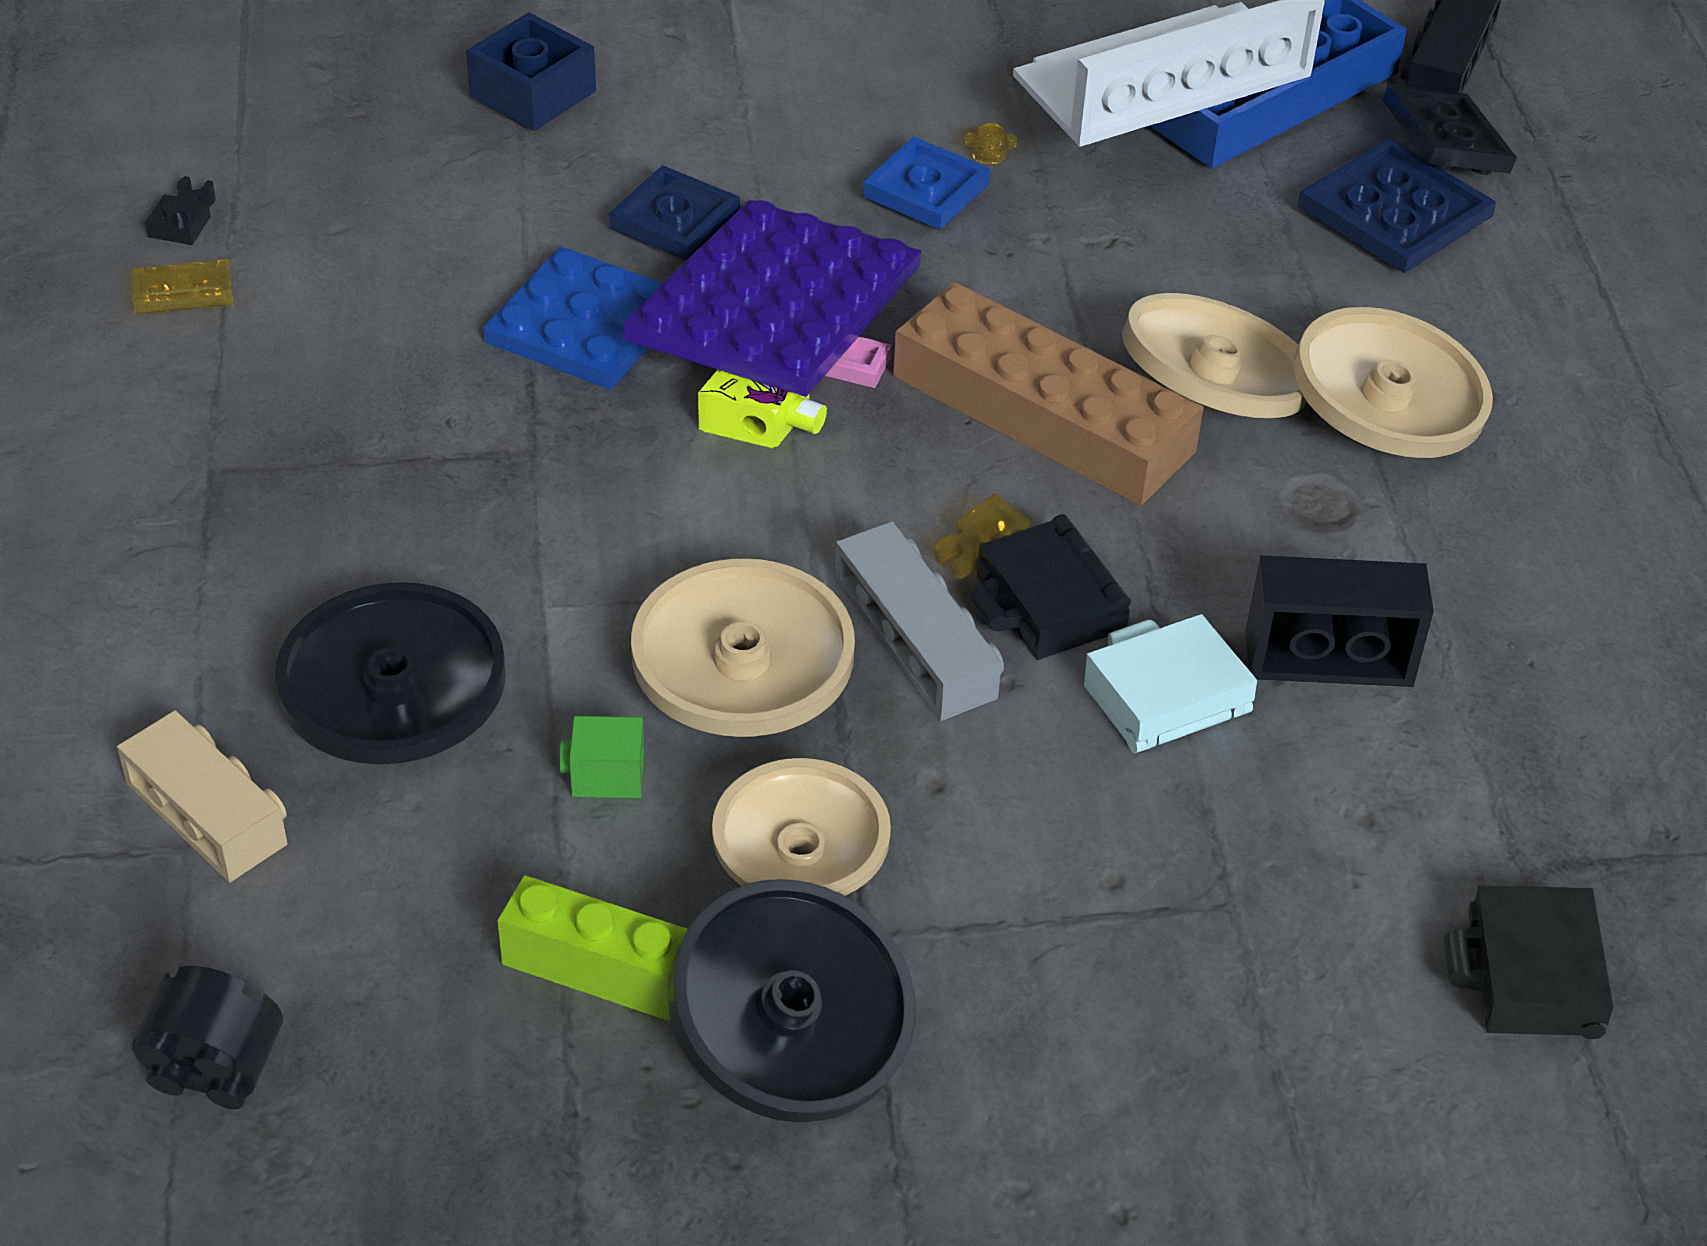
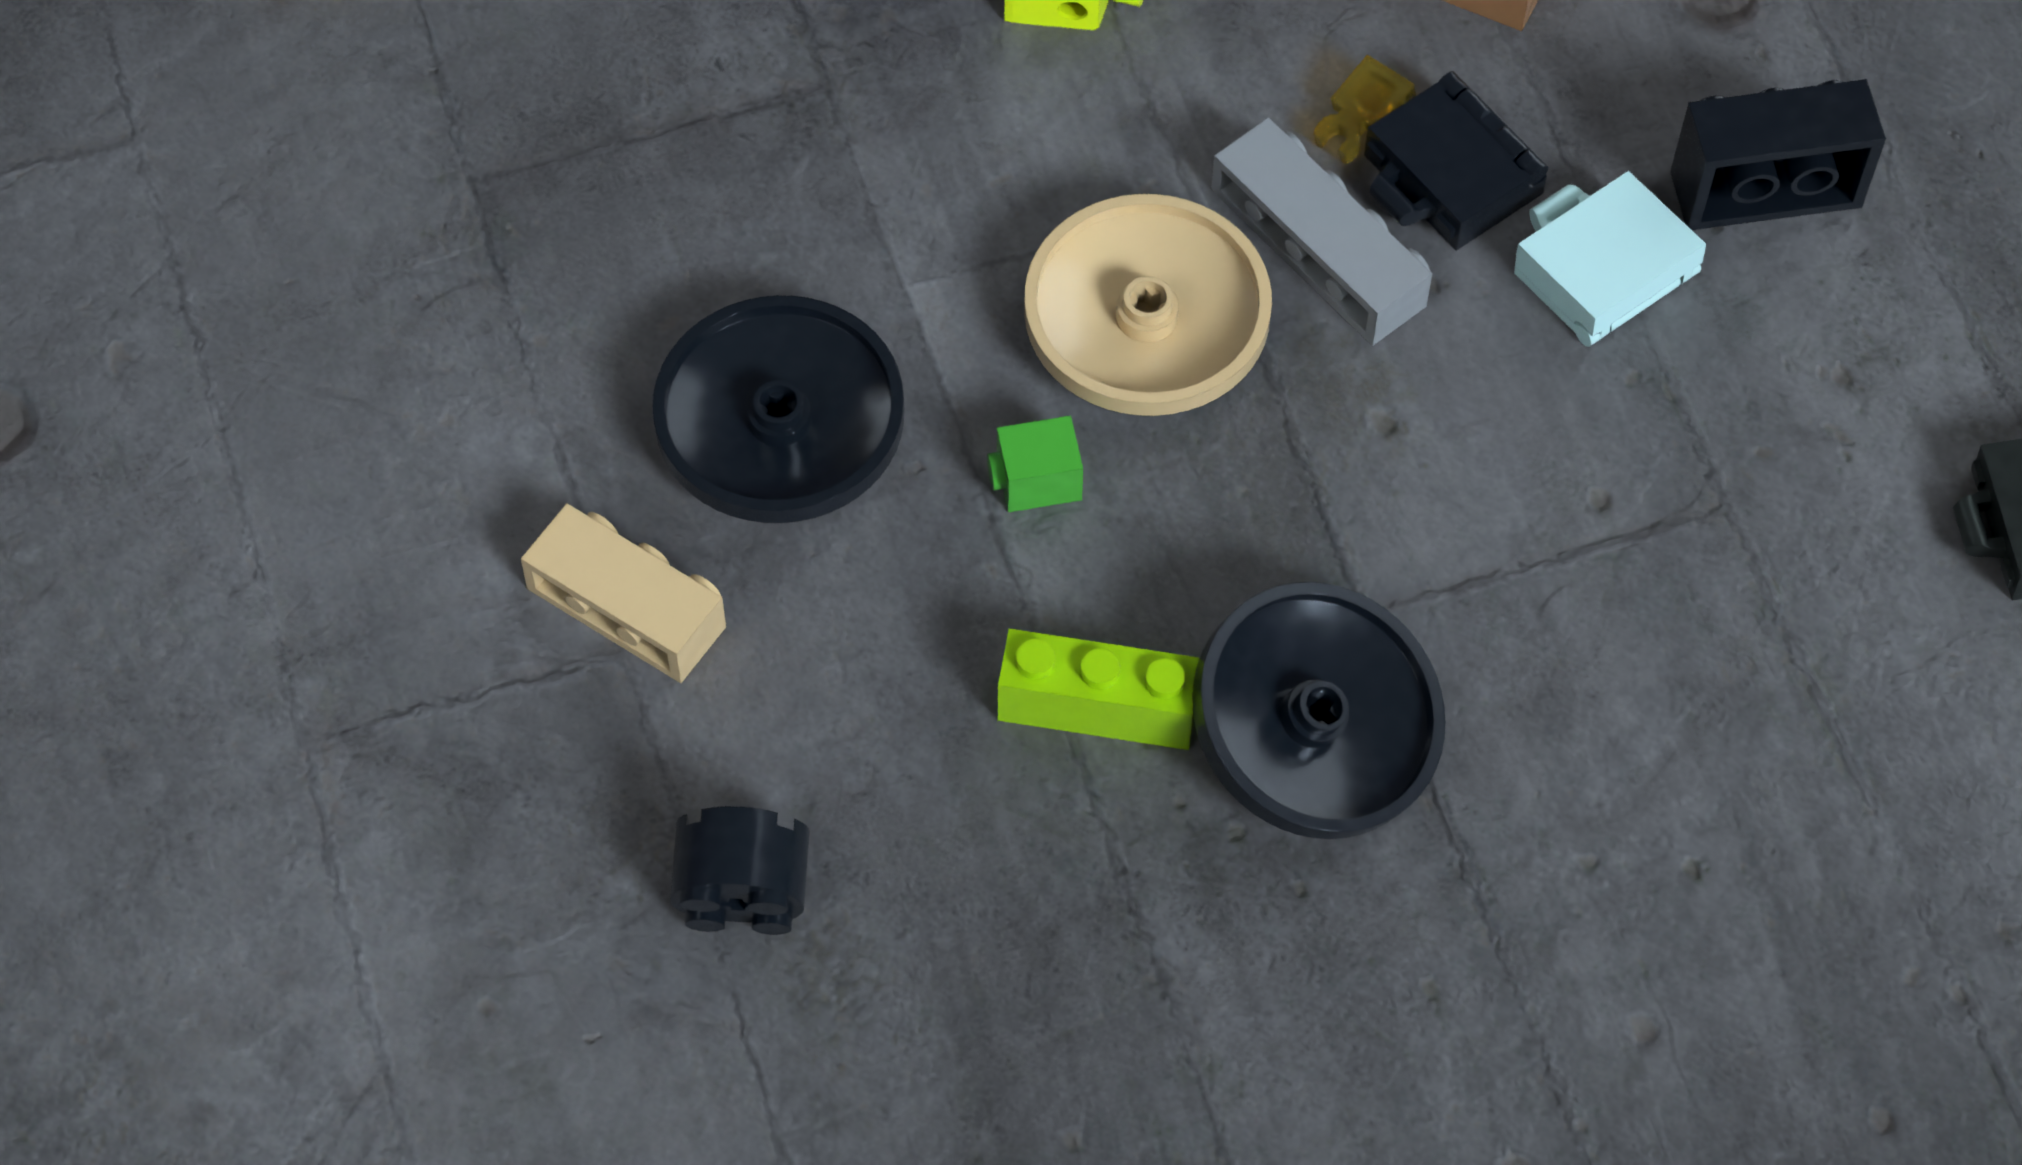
camera: 10 degrees left, 15 degrees up
(802, 810) = (1279, 487): tan dish -> none

